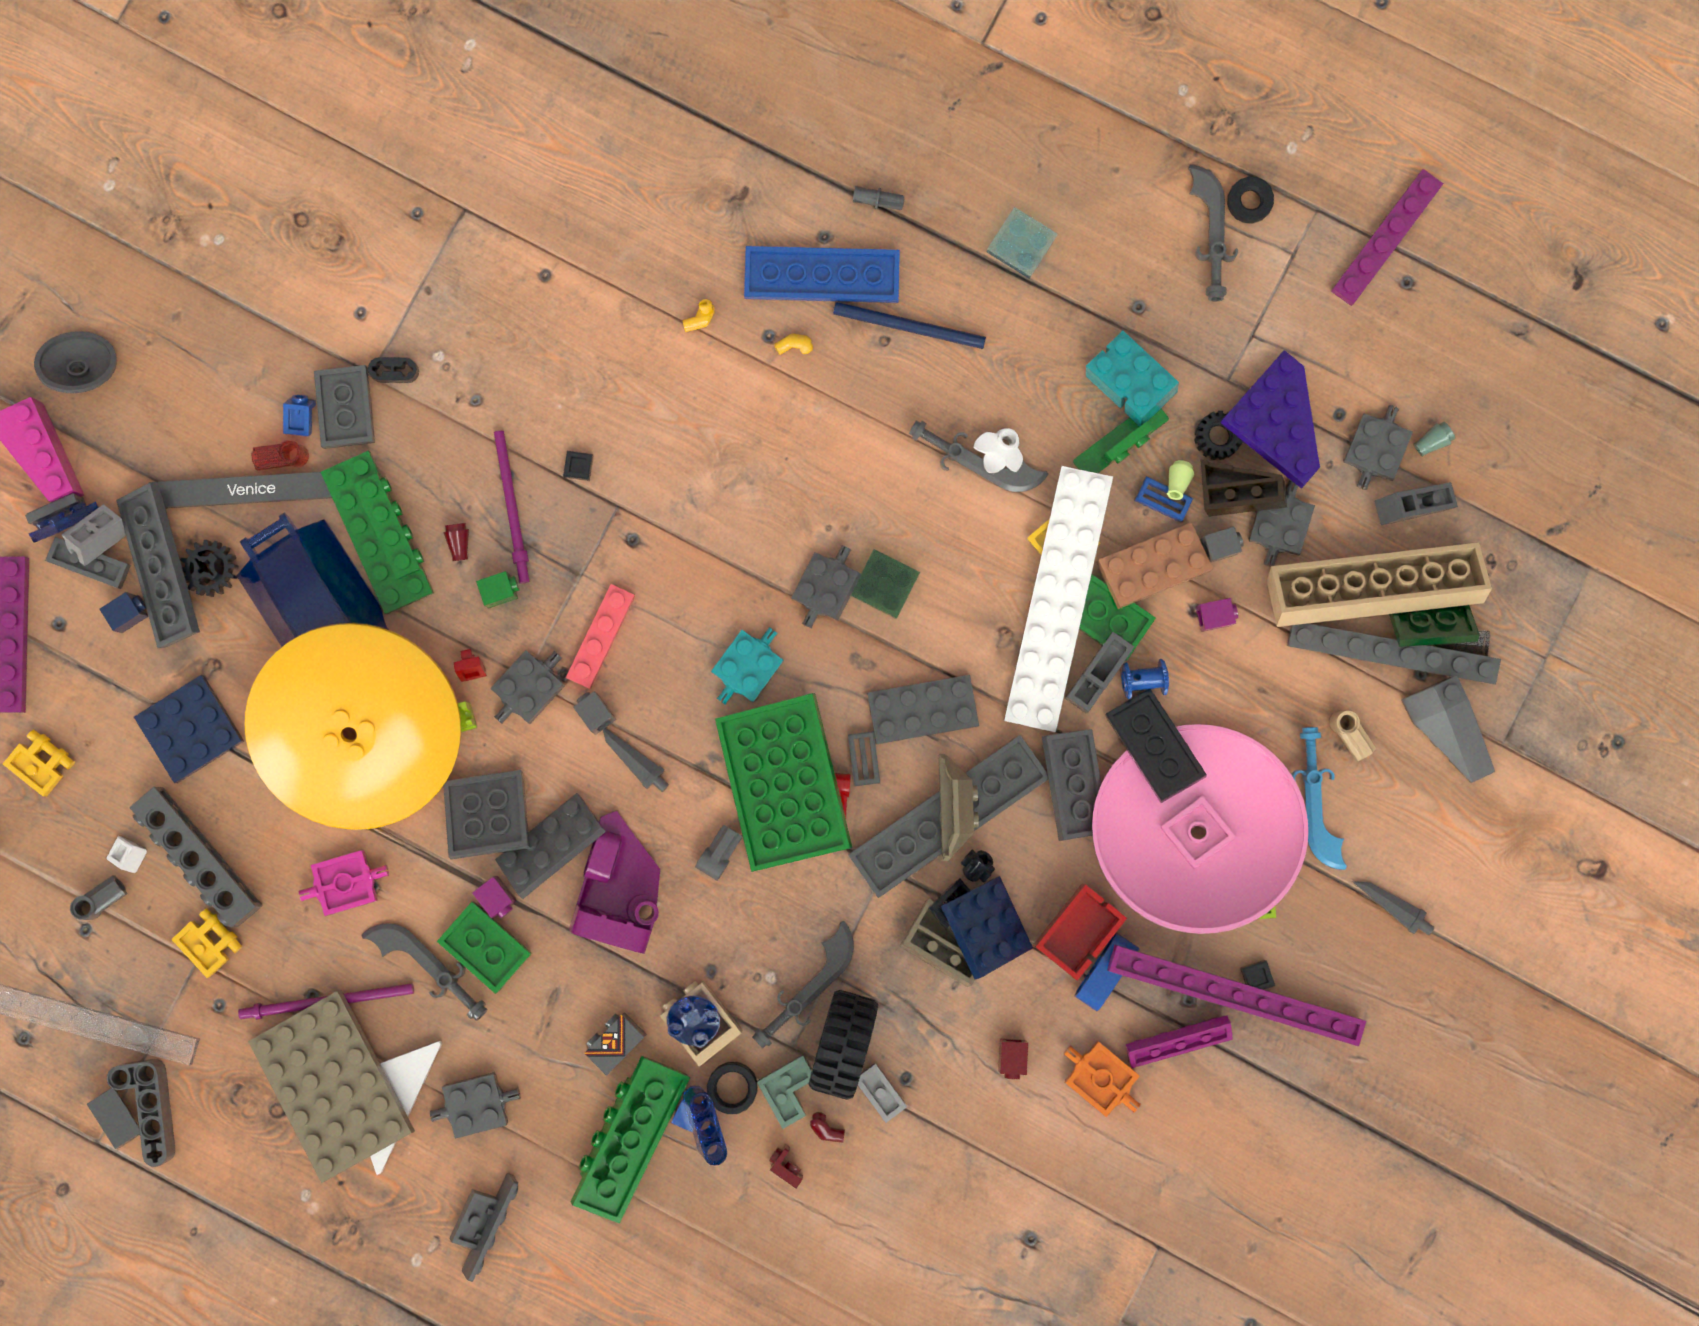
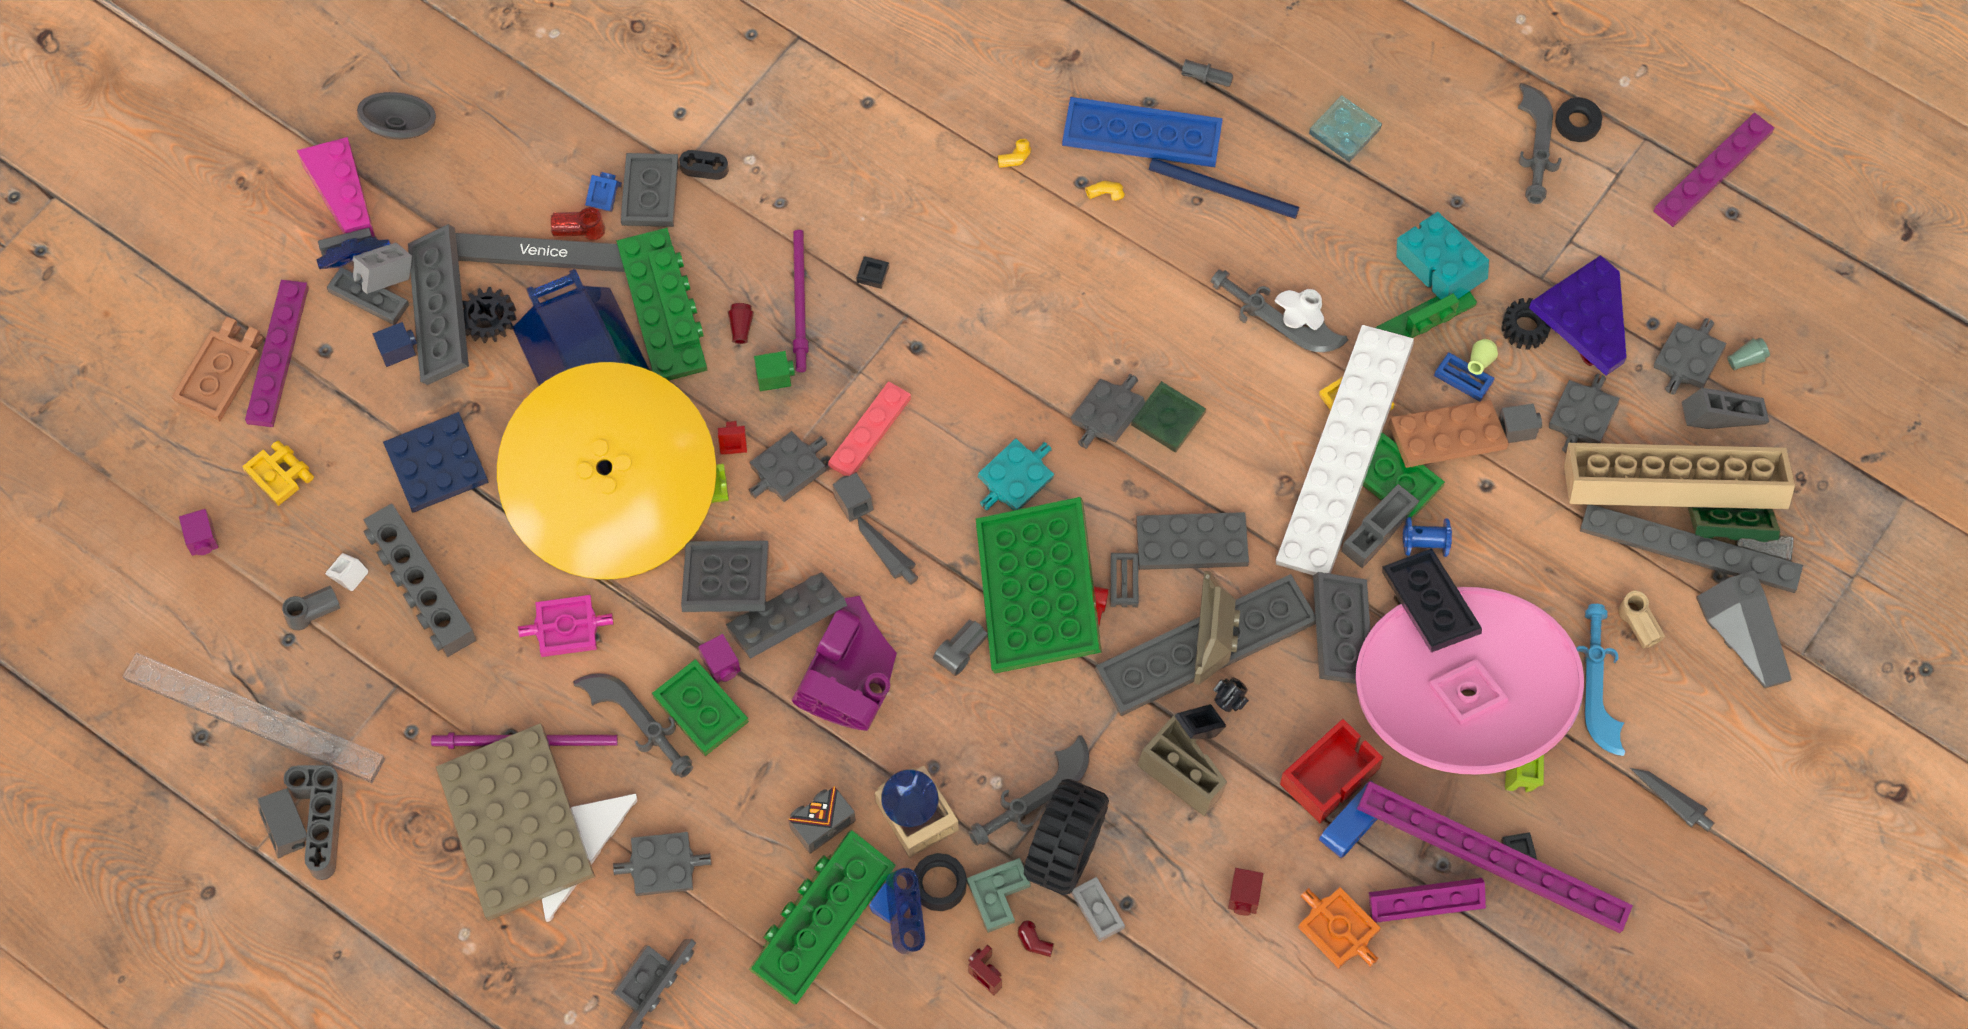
camera: 10 degrees right, 20 degrees down
(201, 948) = (406, 671): yellow plate -> none
(987, 927) = (1233, 750): dark blue plate -> none
(1216, 614) = (1508, 487): magenta brick -> none
(1240, 490) = (1543, 370): dark brown wedge -> none

